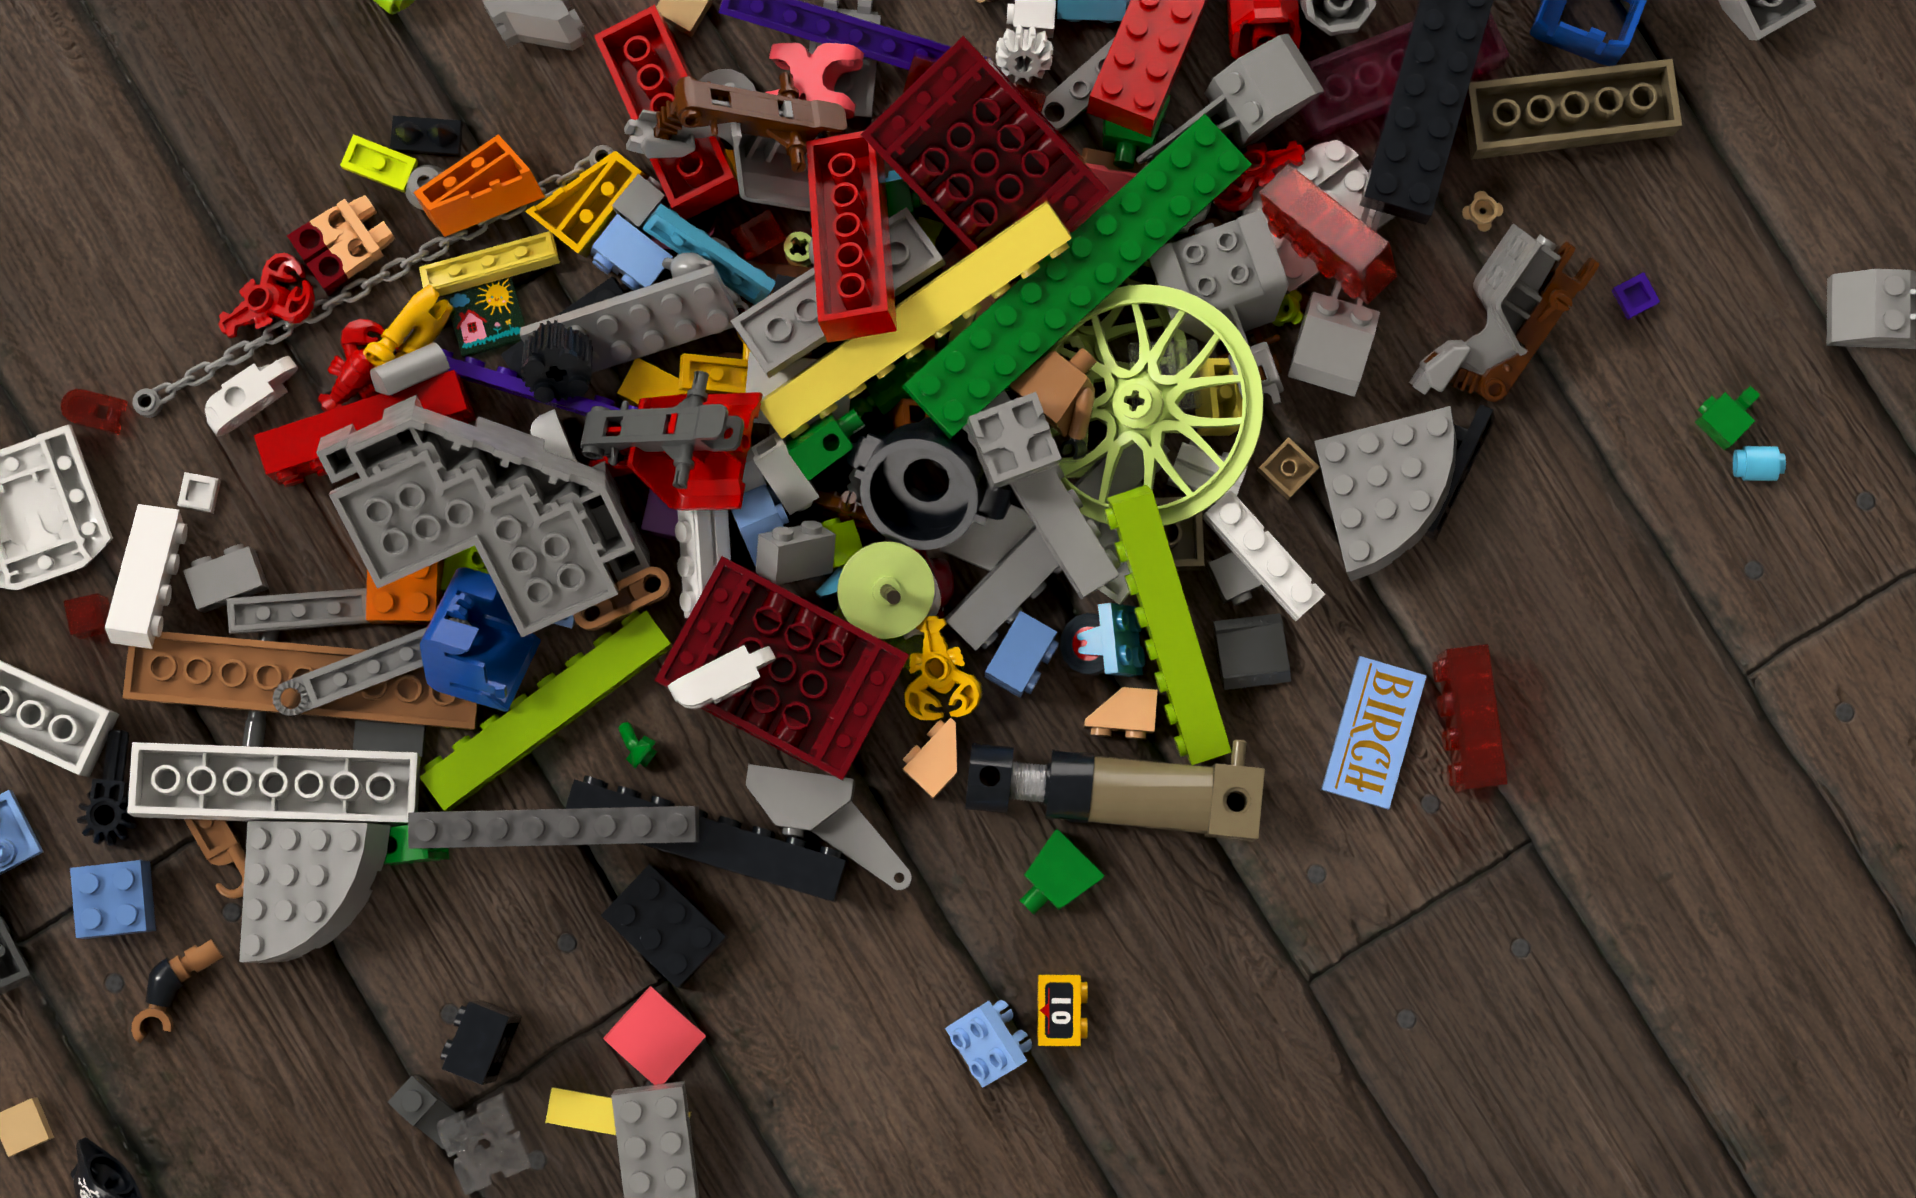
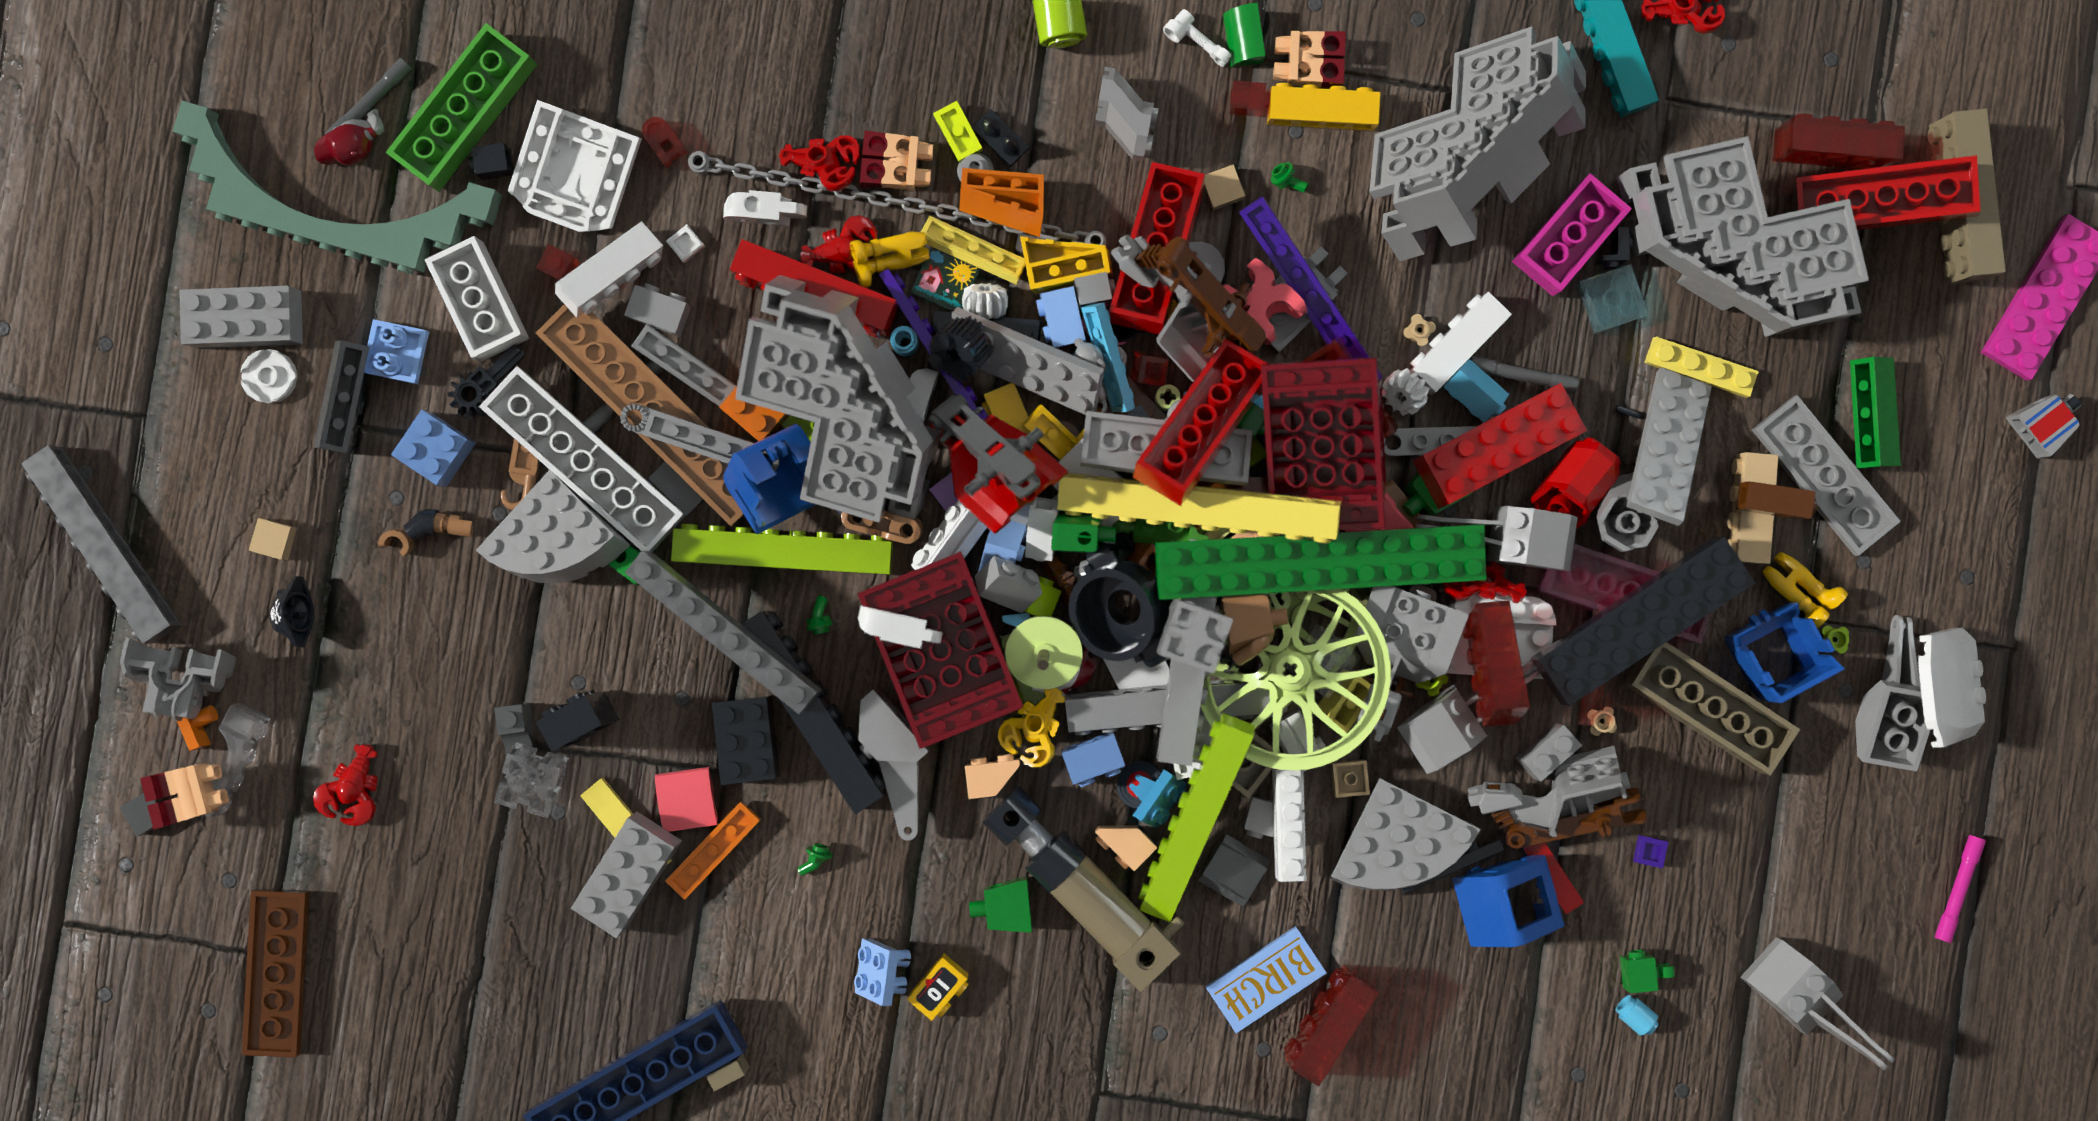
camera: 40 degrees right, 5 degrees up
(409, 369) = (868, 277): light grey brick -> none
(492, 397) = (901, 333): none -> medium azure brick
(542, 300) = (985, 300): none -> white gear
(723, 1064) = (713, 850): none -> orange plate
(831, 981) = (817, 855): none -> green plate
(1455, 282) = (1548, 752): none -> light grey brick
(1525, 477) = (1488, 909): none -> blue piece
(1564, 398) = (1565, 891): none -> red piece

